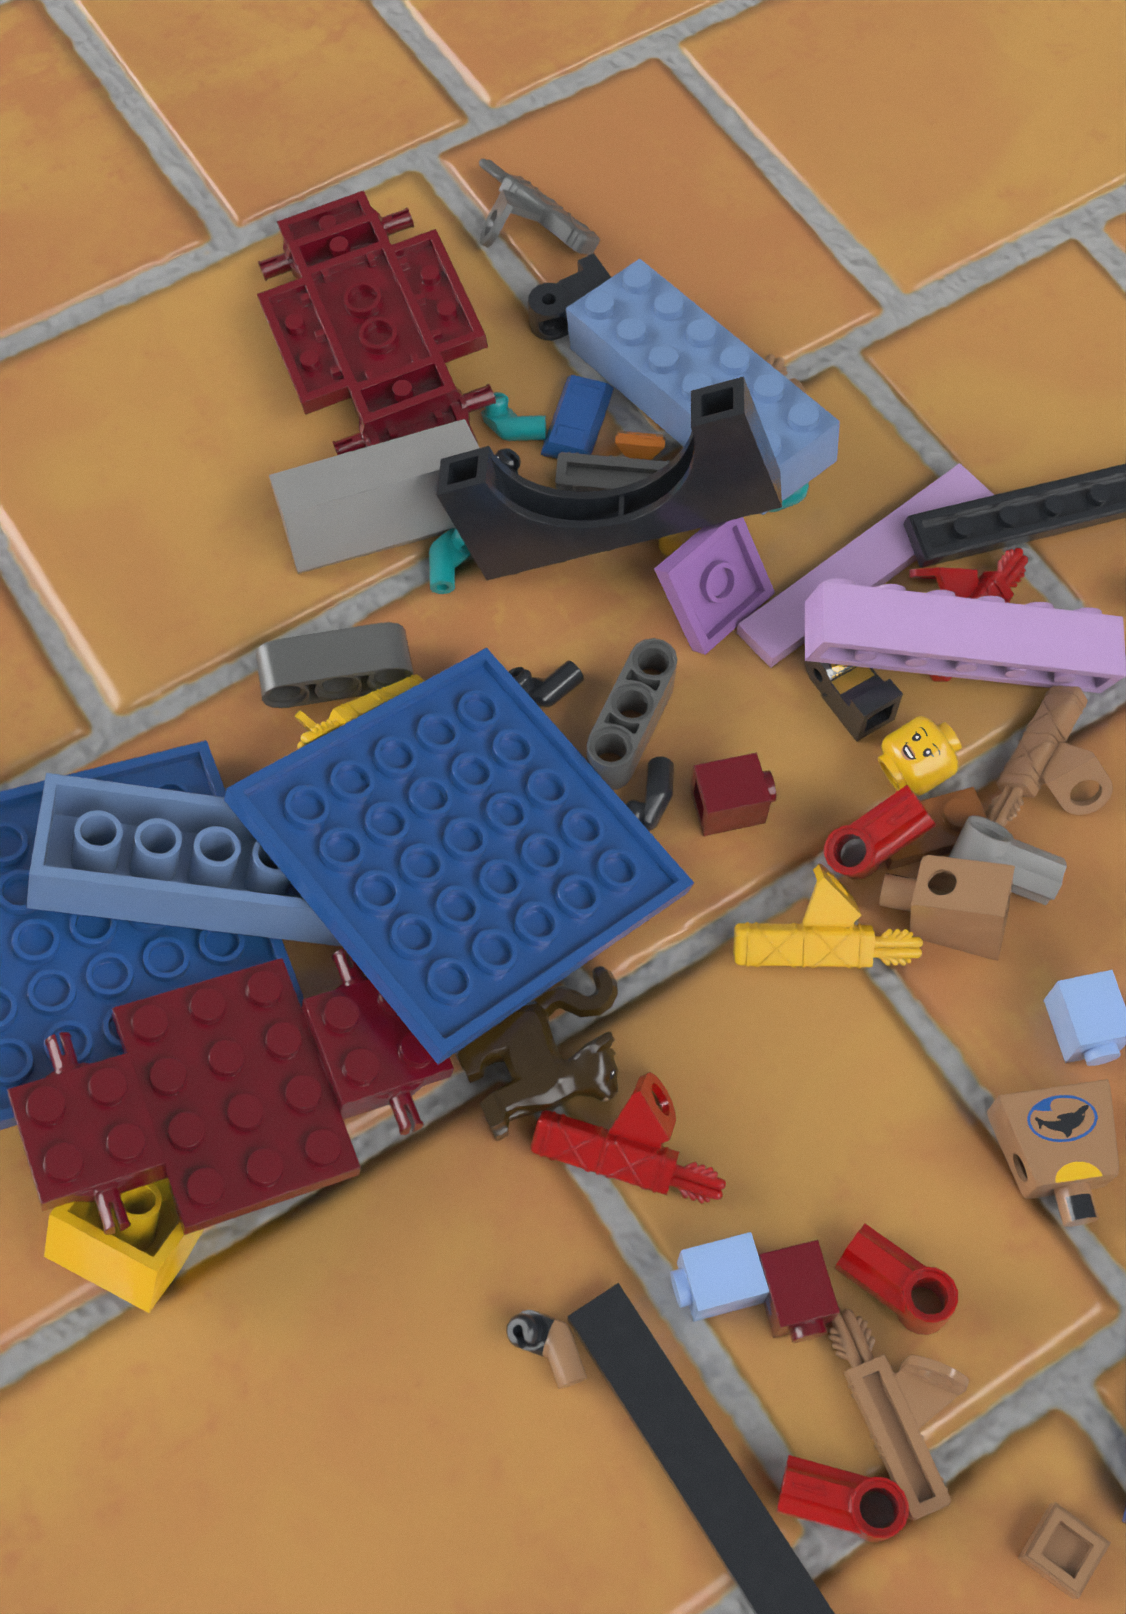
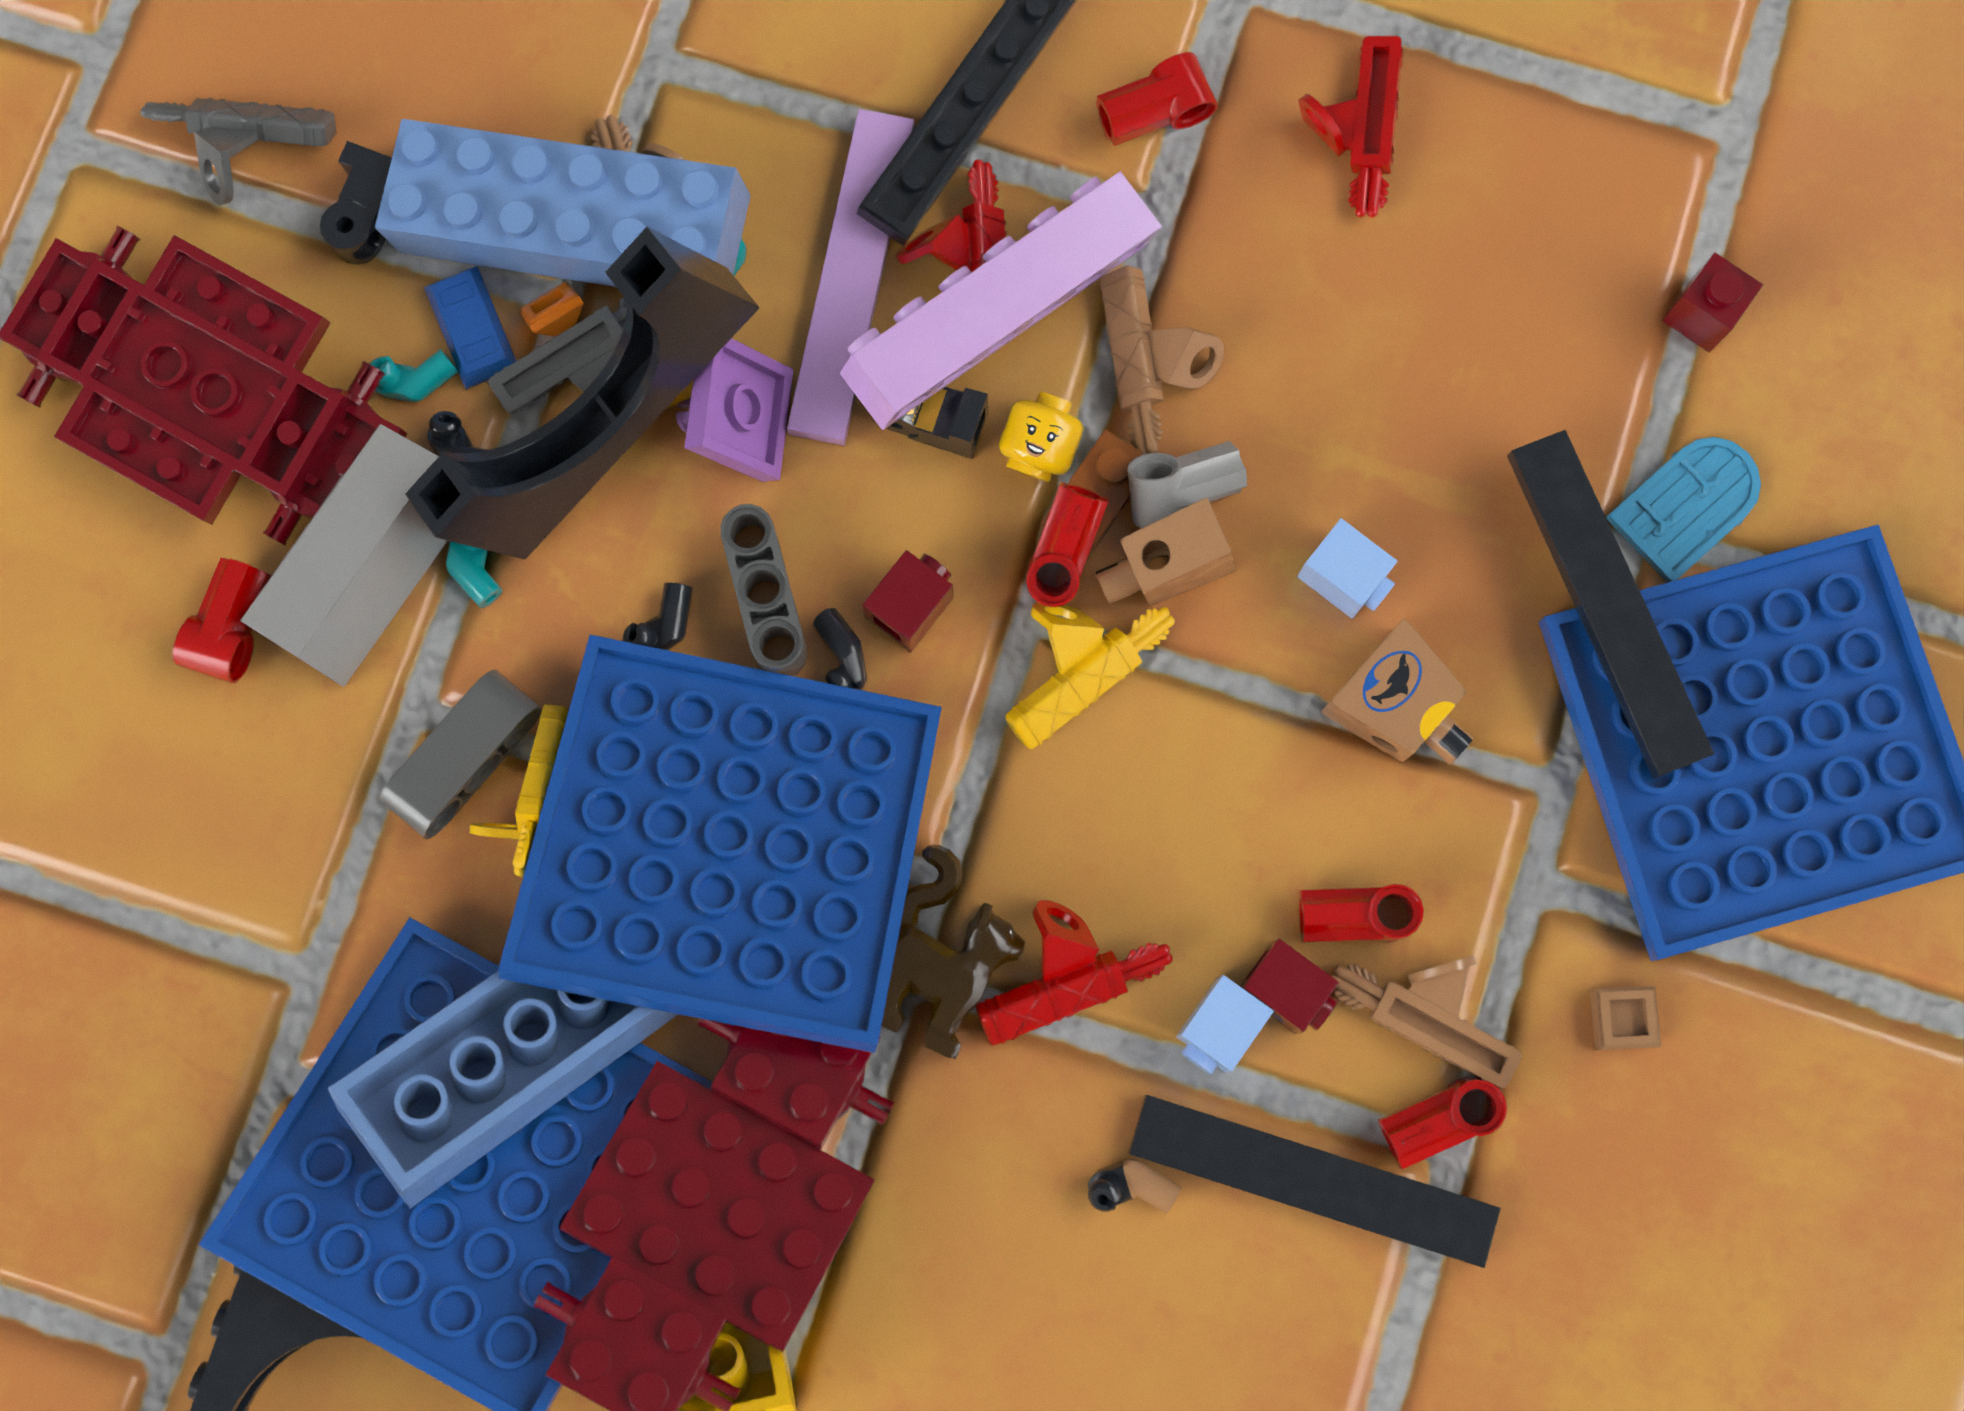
camera: 40 degrees left, 15 degrees up
(245, 483) = (216, 638): none -> red piece

